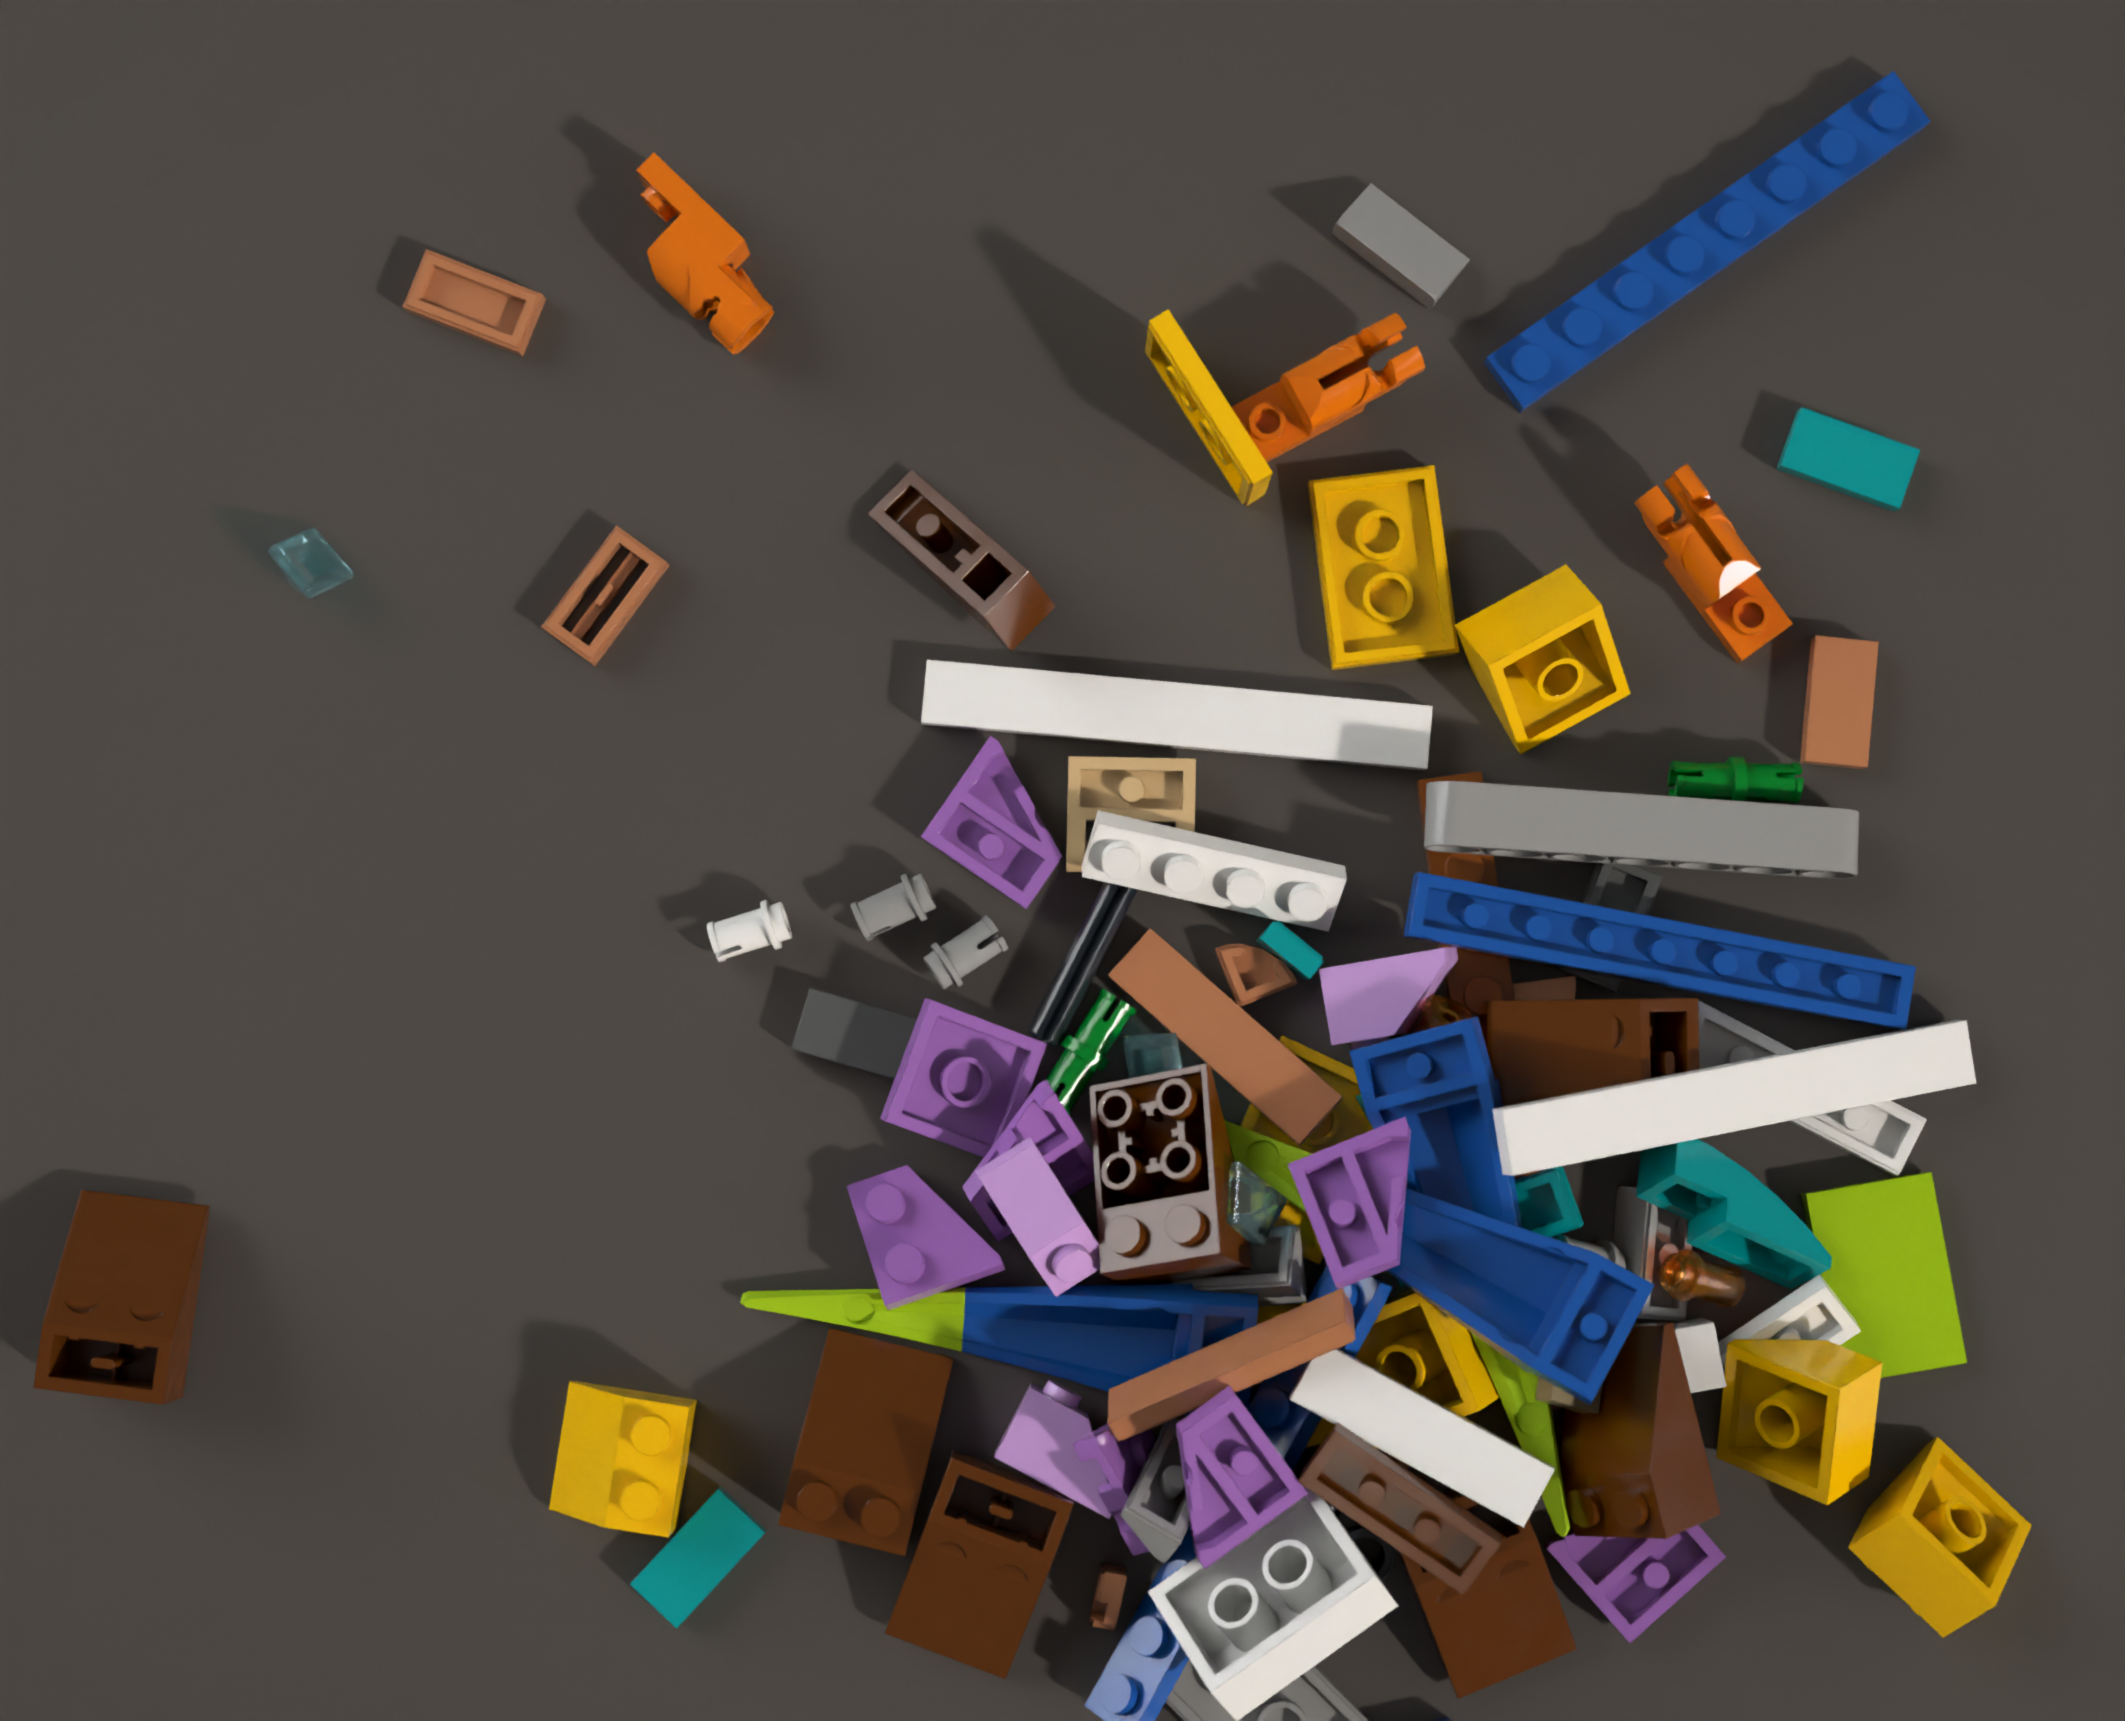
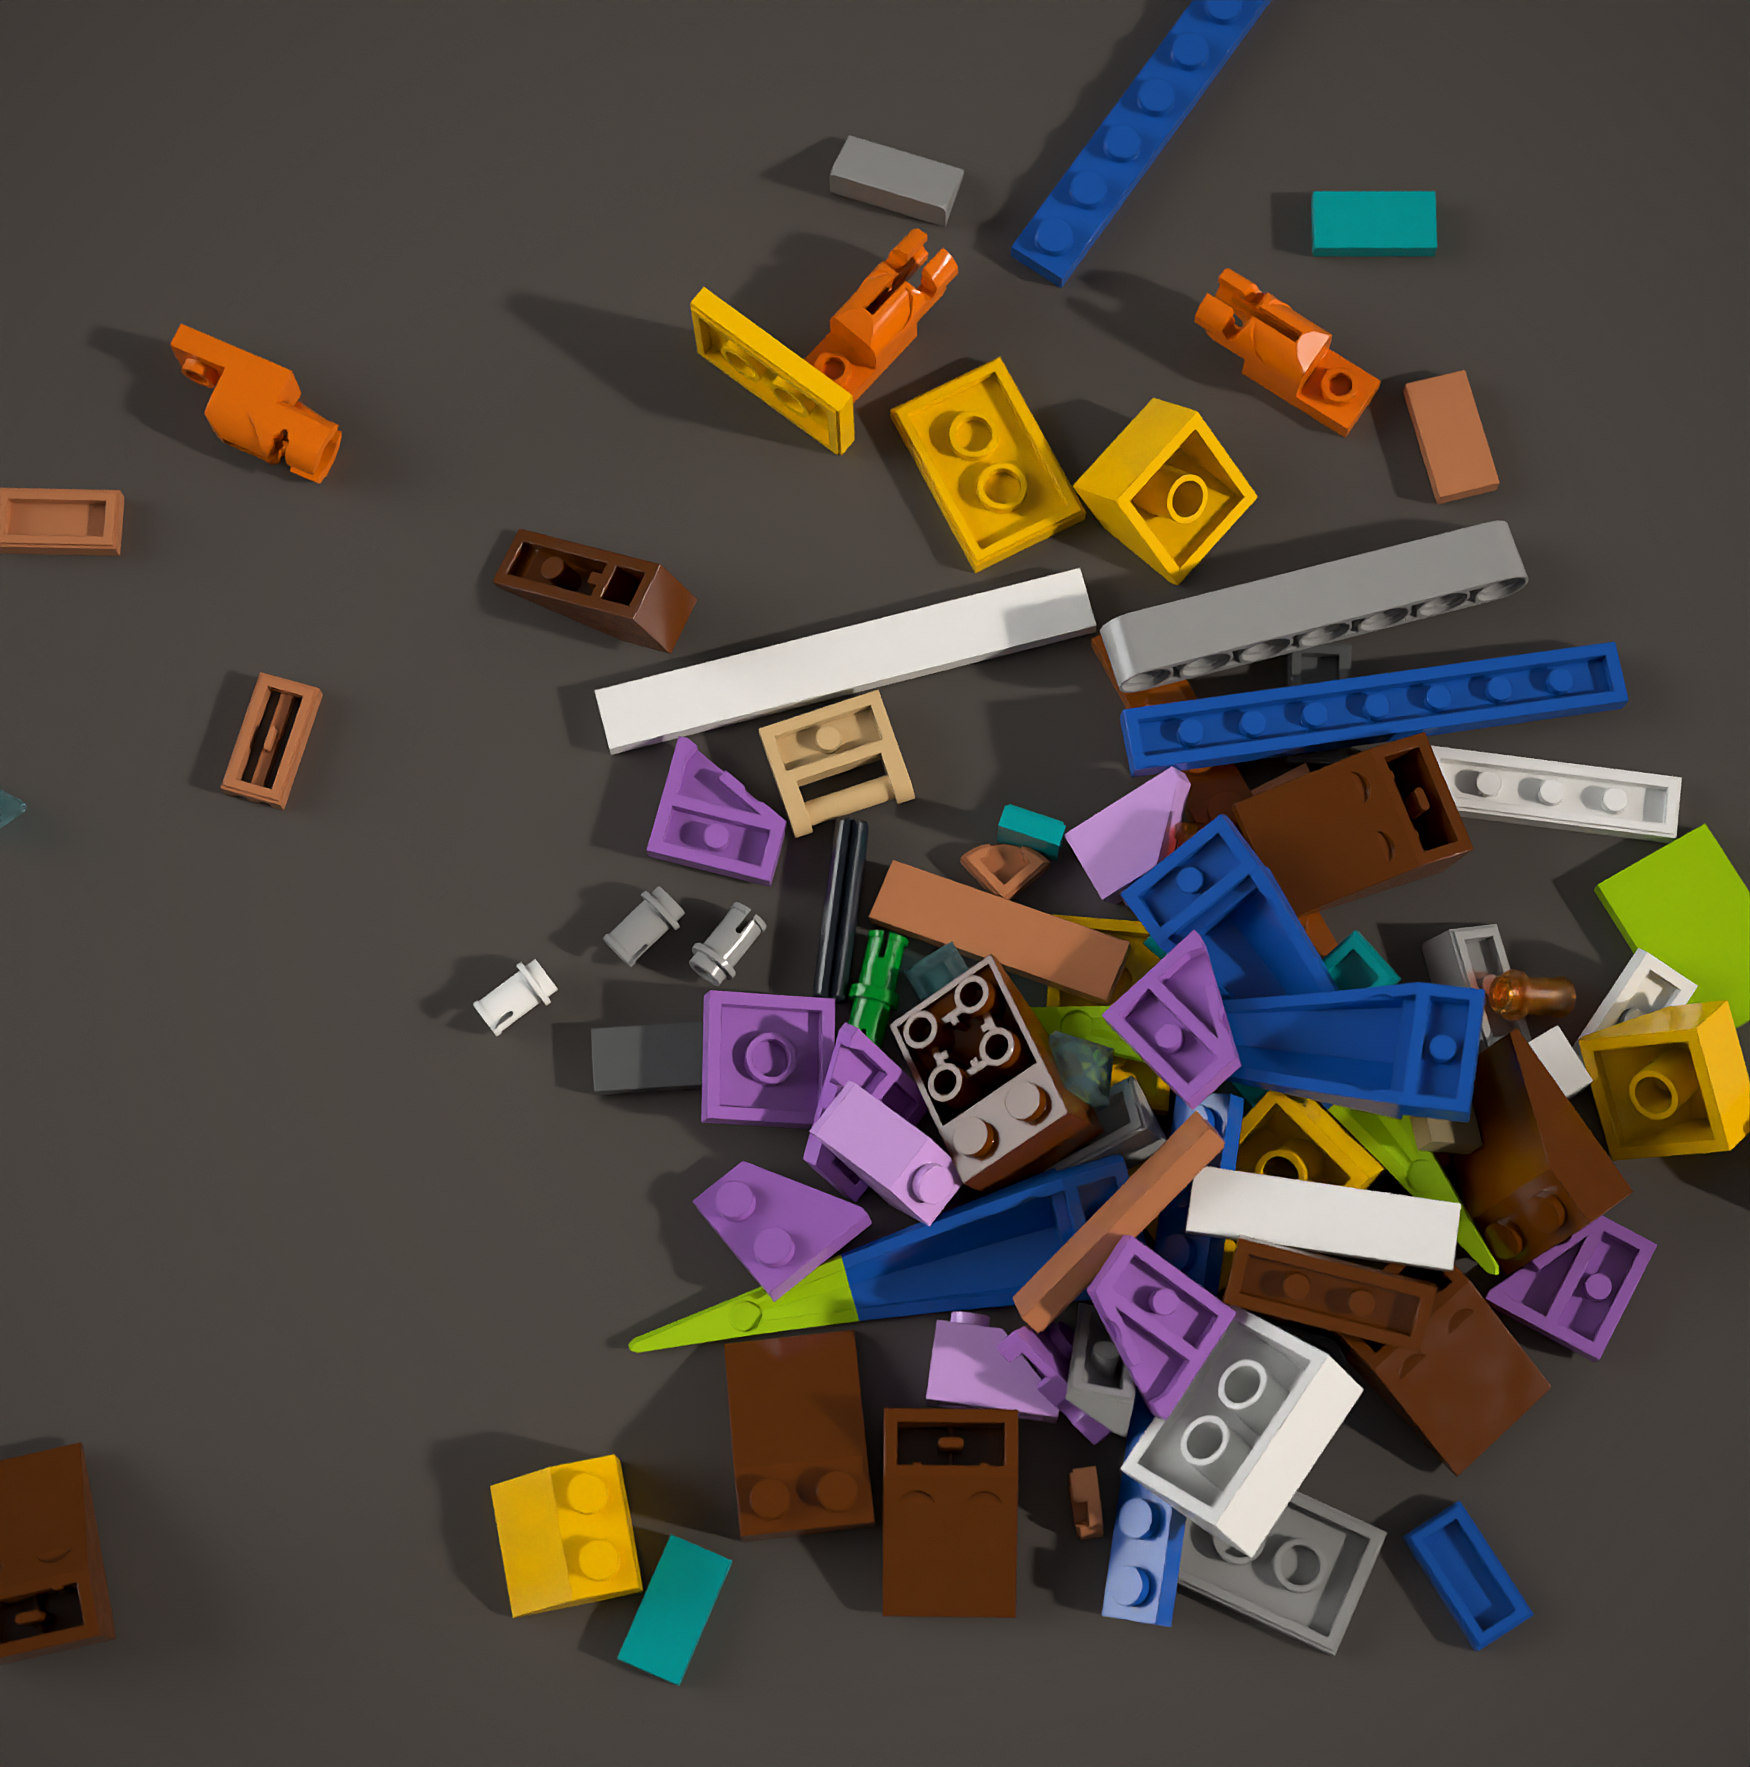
camera: 15 degrees left, 10 degrees down
(1213, 871) = (932, 783): white plate -> none
(1730, 1212) = (1532, 921): teal slope -> none
(1732, 1097) = (1490, 809): white tile -> none
(1736, 780) = (1385, 532): green pin -> none

